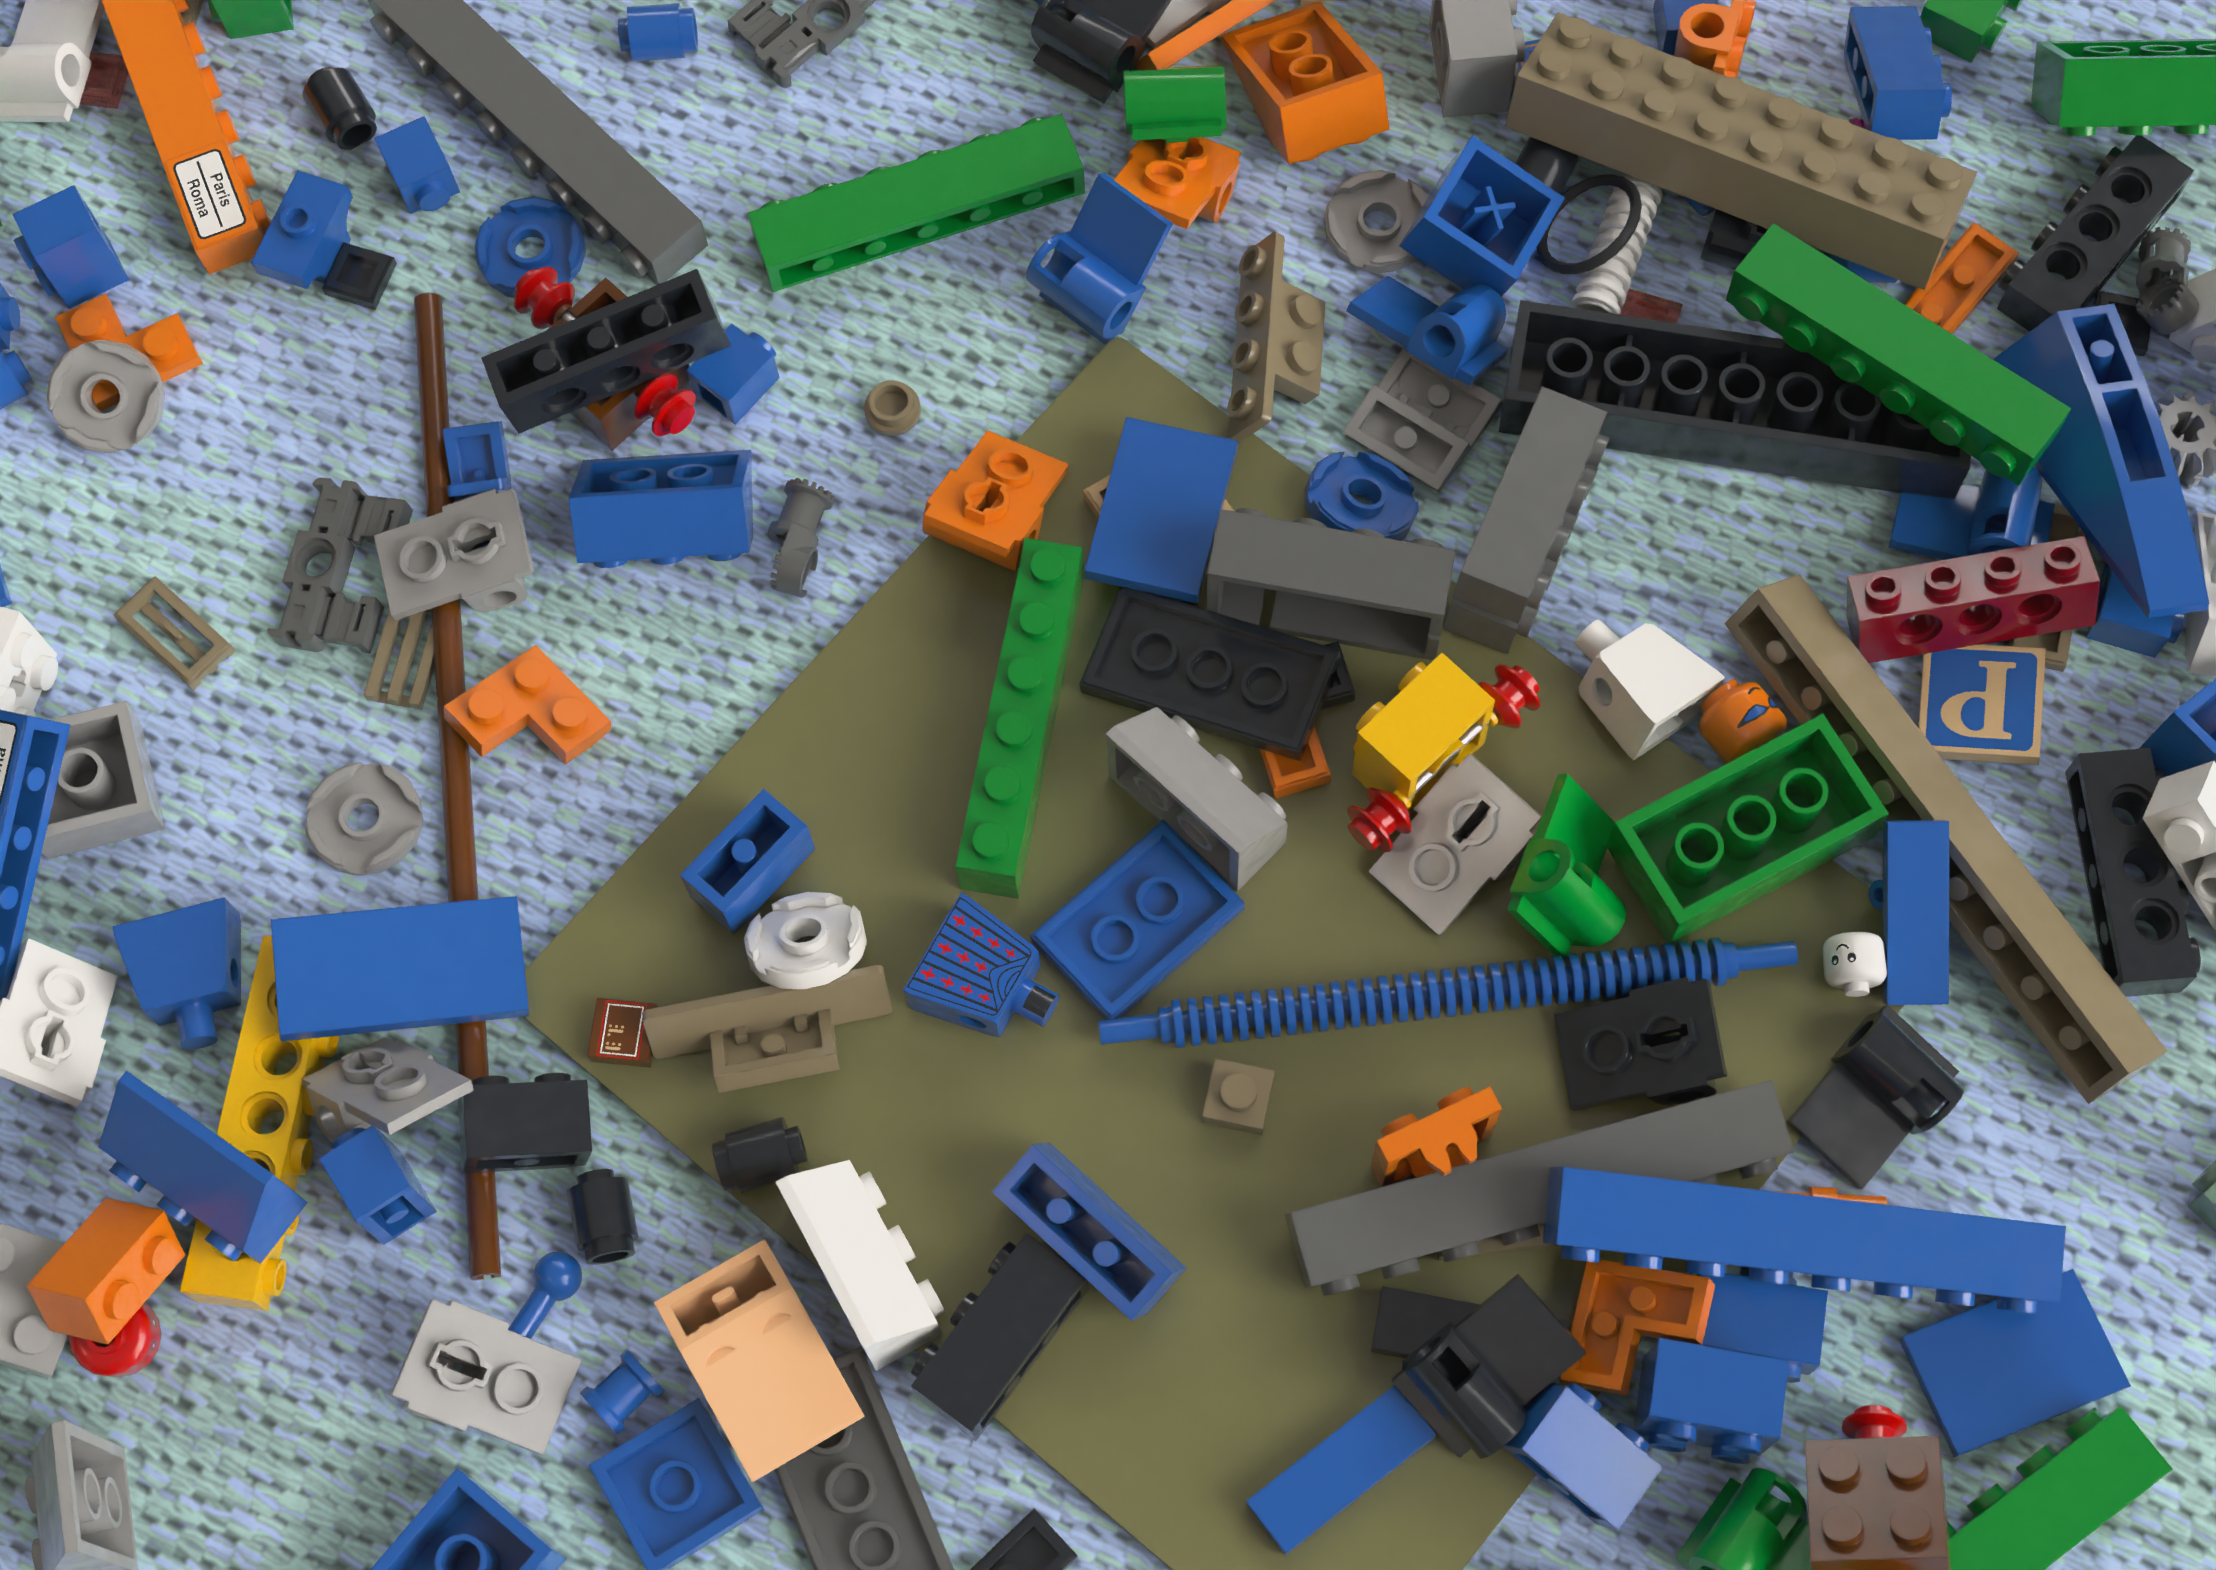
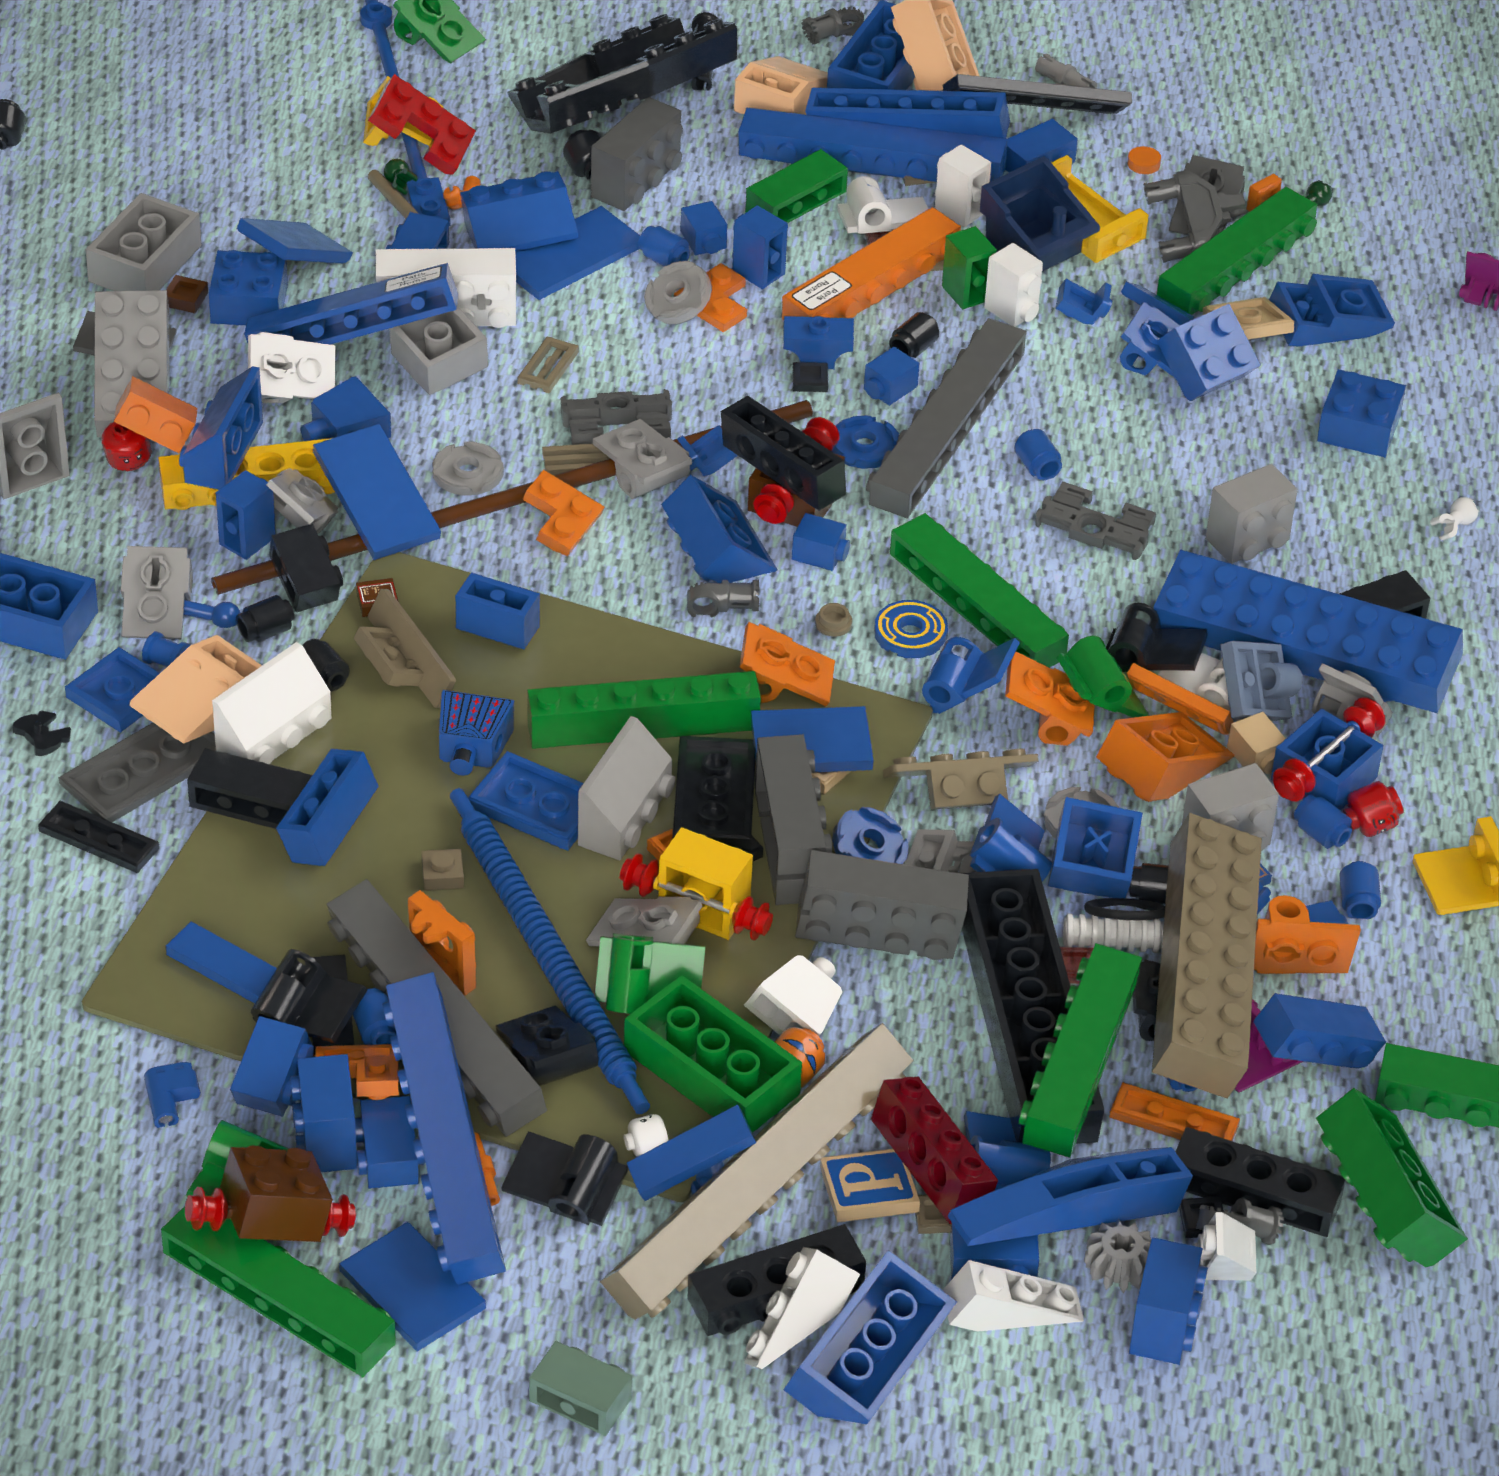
camera: 65 degrees right, 25 degrees down
(808, 964) = (458, 650): white tile -> none
(936, 284) = (902, 613): none -> blue tile
(1538, 1266) = (372, 1020): none -> blue brick

